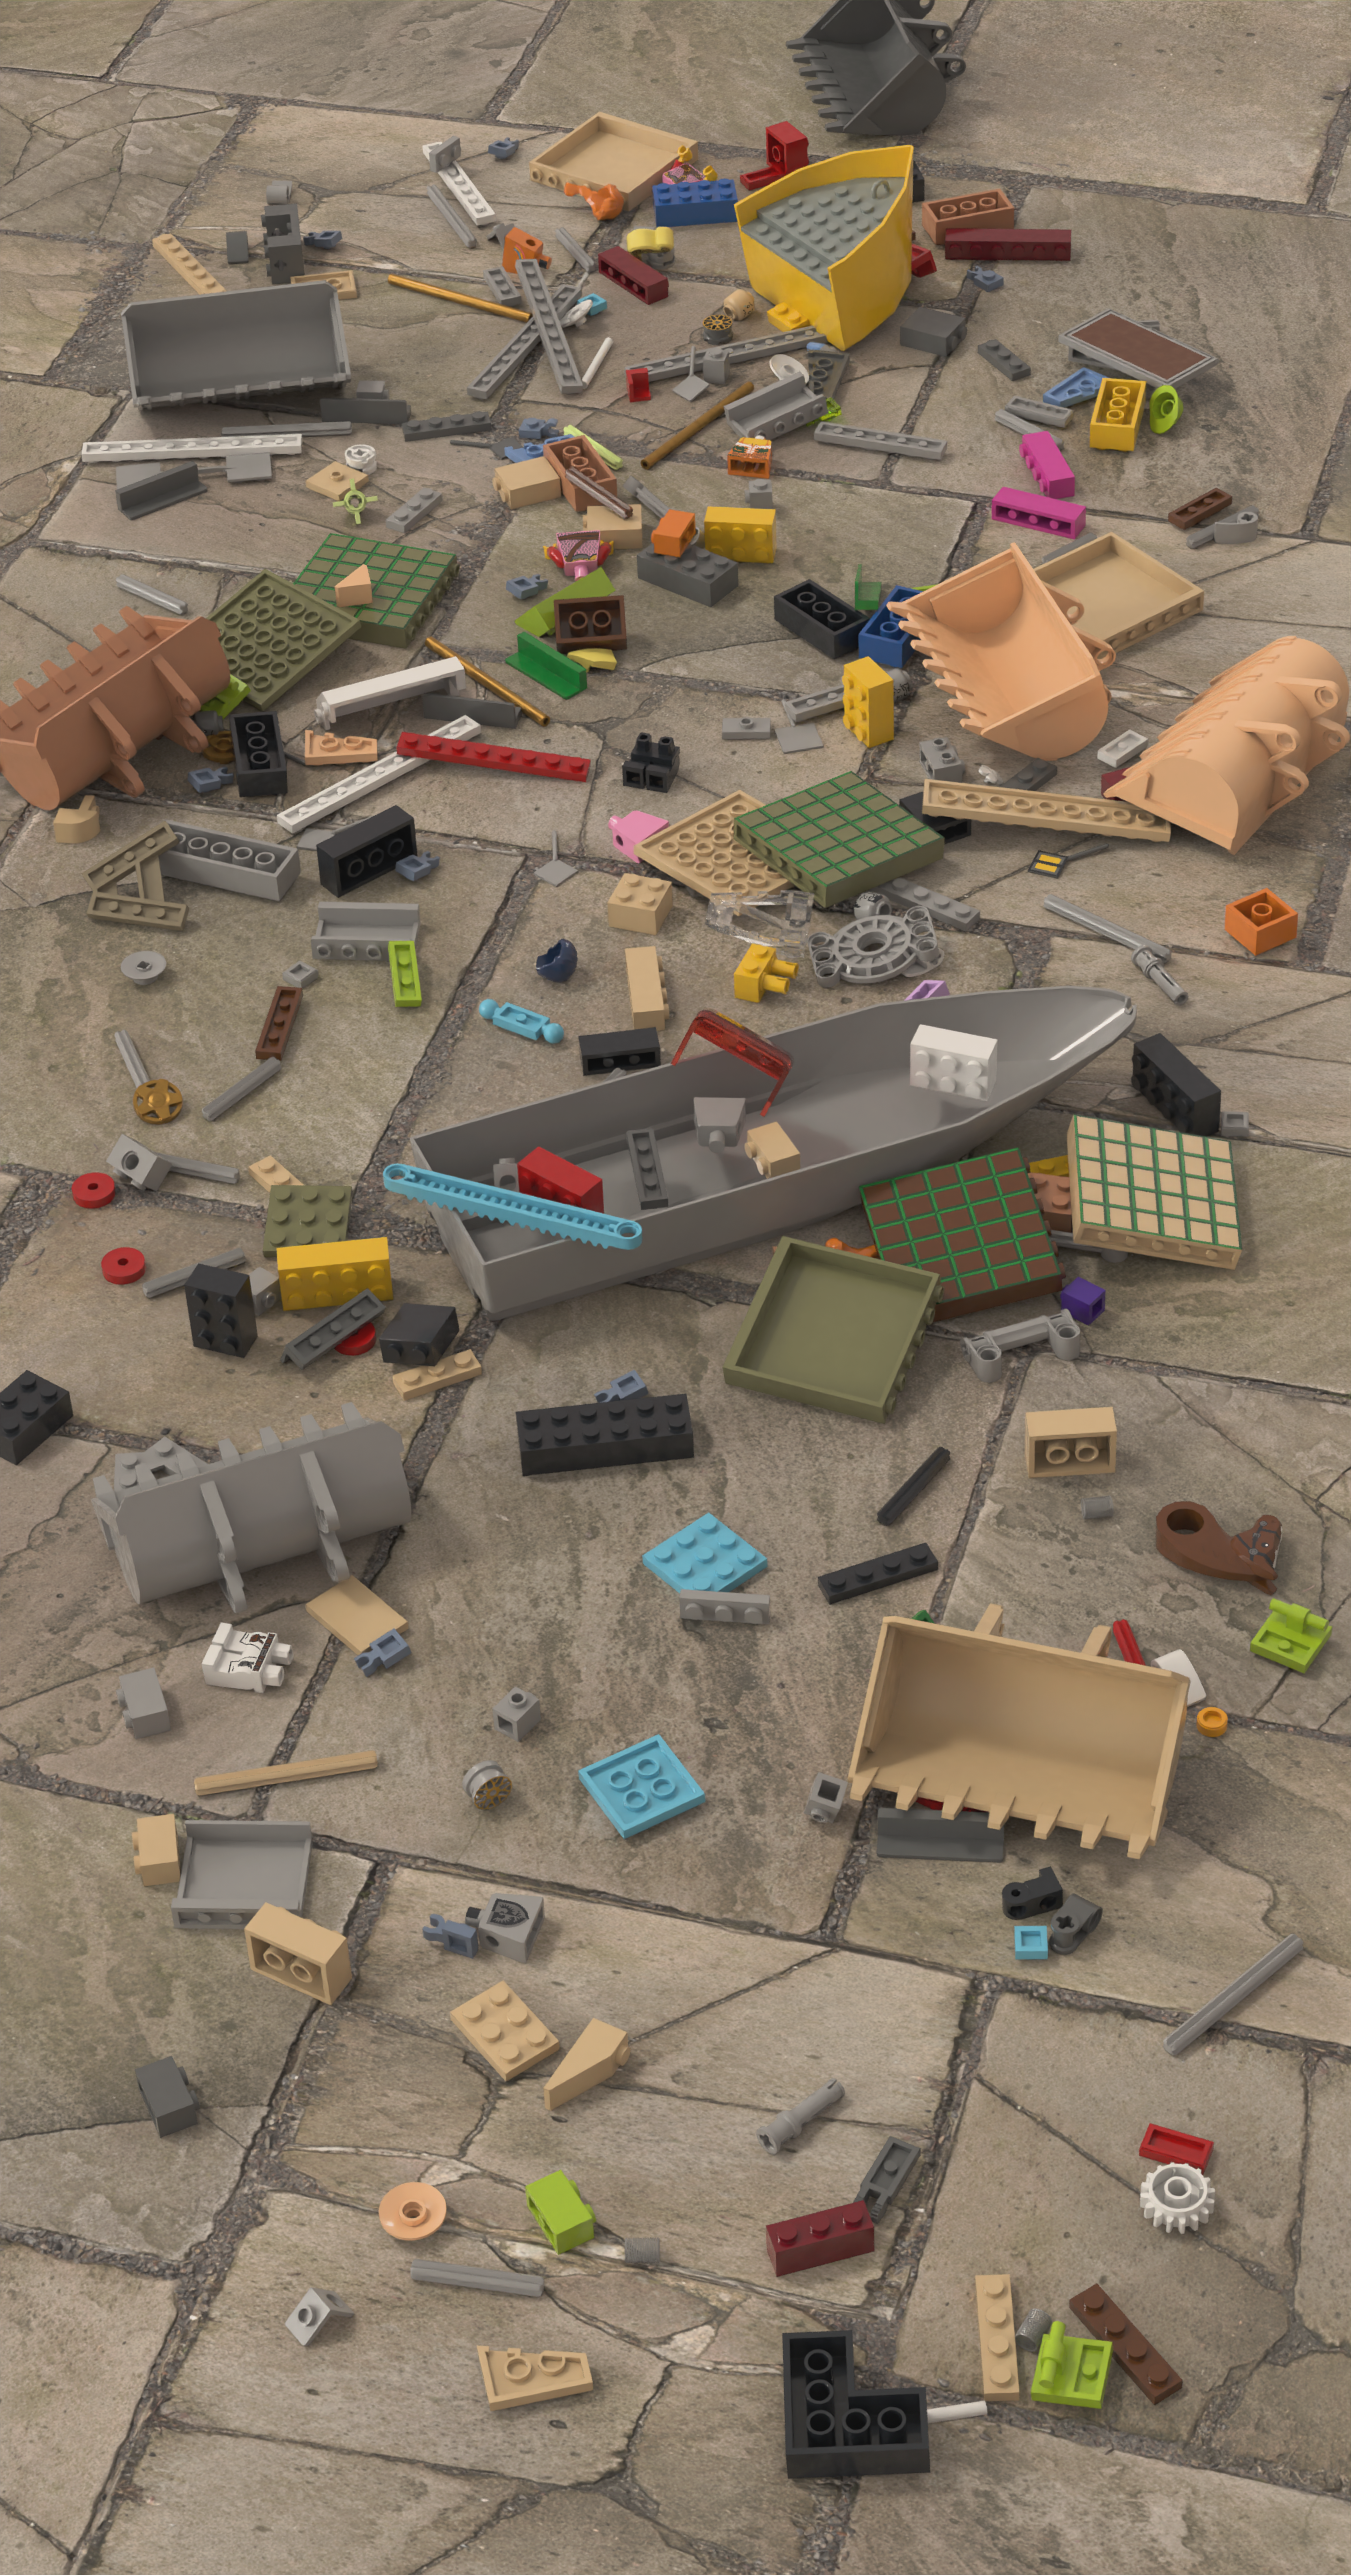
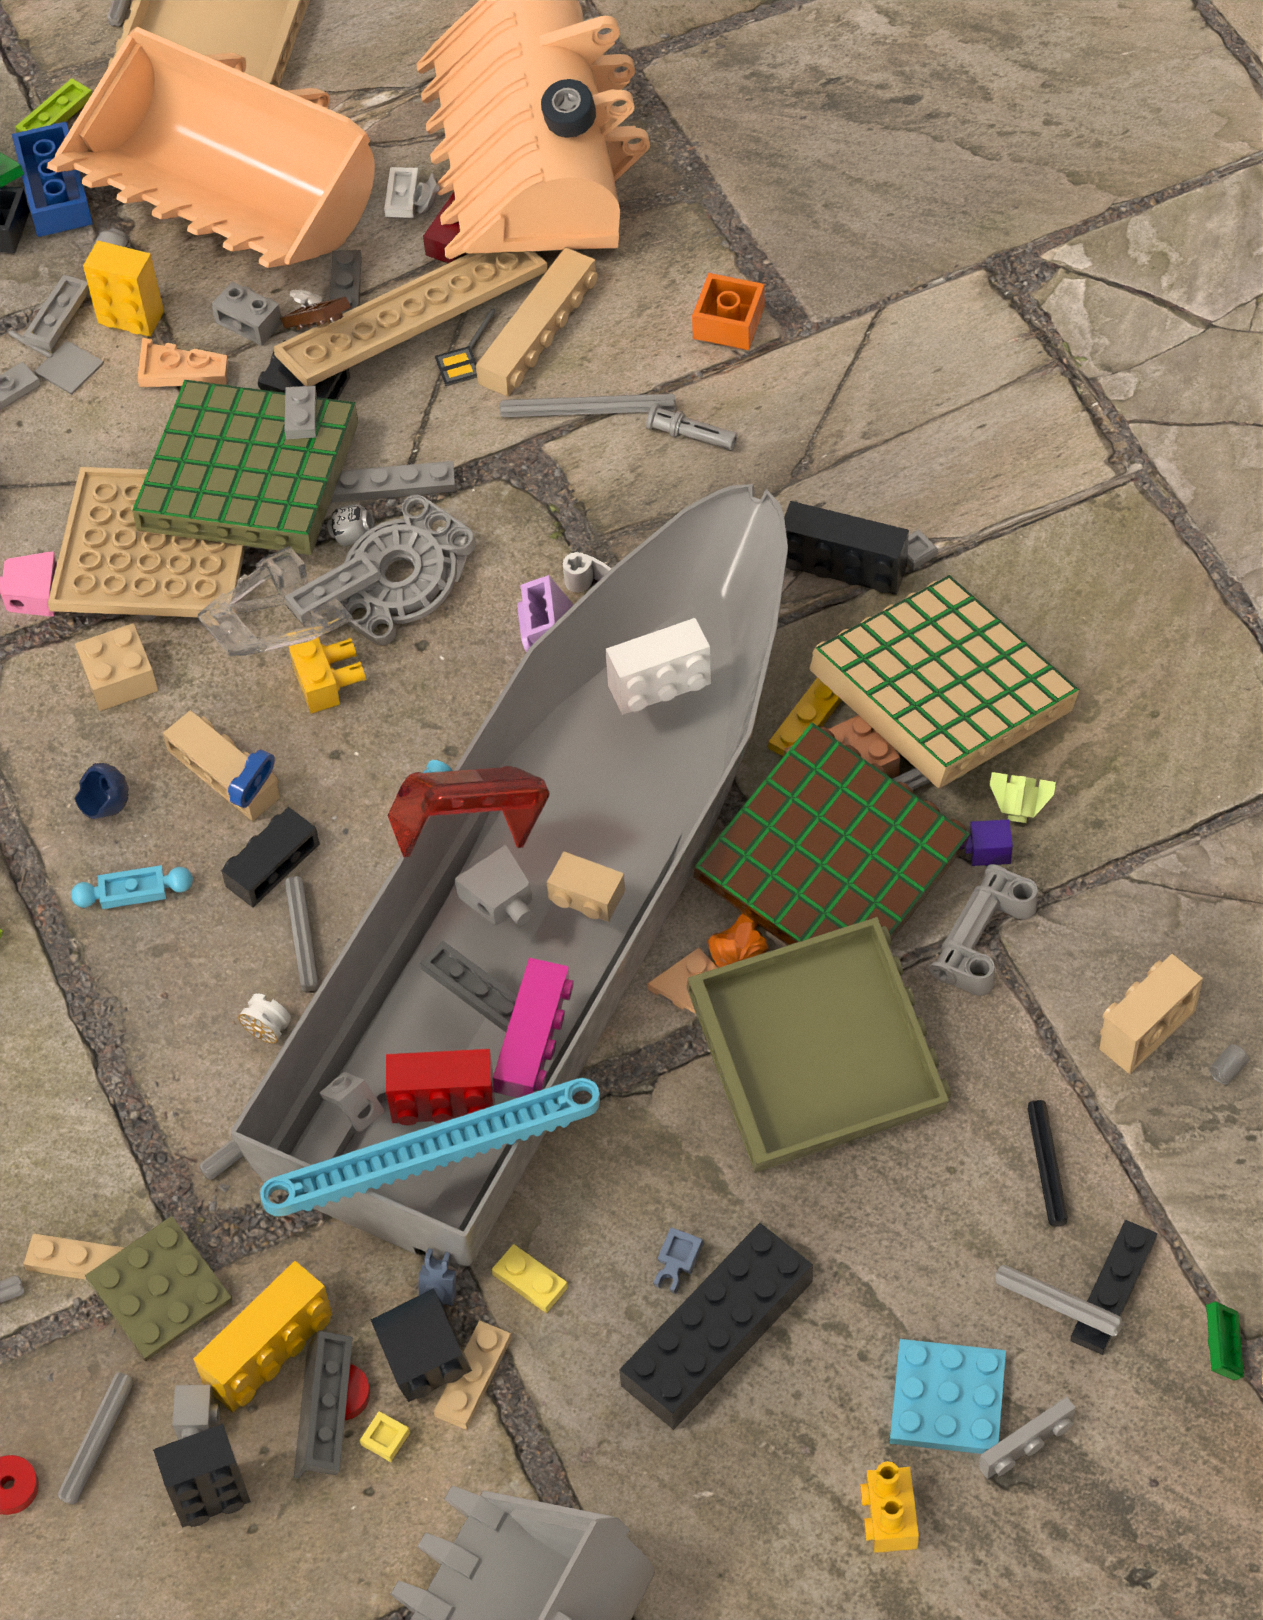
camera: 40 degrees left, 15 degrees up
(350, 1370) = (384, 1436): none -> light yellow plate
(466, 1309) = (436, 1276): none -> sand blue plate
(525, 1349) = (529, 1278): none -> light yellow plate
(598, 1583) = (891, 1508): none -> yellow brick
(646, 995) = (252, 778): none -> blue plate
(652, 1190) = (532, 1029): none -> dark pink brick
(819, 928) = (337, 583): none -> light grey plate
(828, 1551) = (1059, 1300): none -> light grey axle
(867, 768) = (171, 366): none -> light nougat wing
(900, 822) = (300, 412): none -> light grey plate
(974, 773) = (316, 314): none -> reddish brown plate
(1126, 863) = (536, 322): none -> tan brick
(1132, 754) = (425, 194): none -> light grey animal
(1132, 1285) = (1020, 796): none -> yellowish green brick
(1242, 719) = (568, 108): none -> black wheel

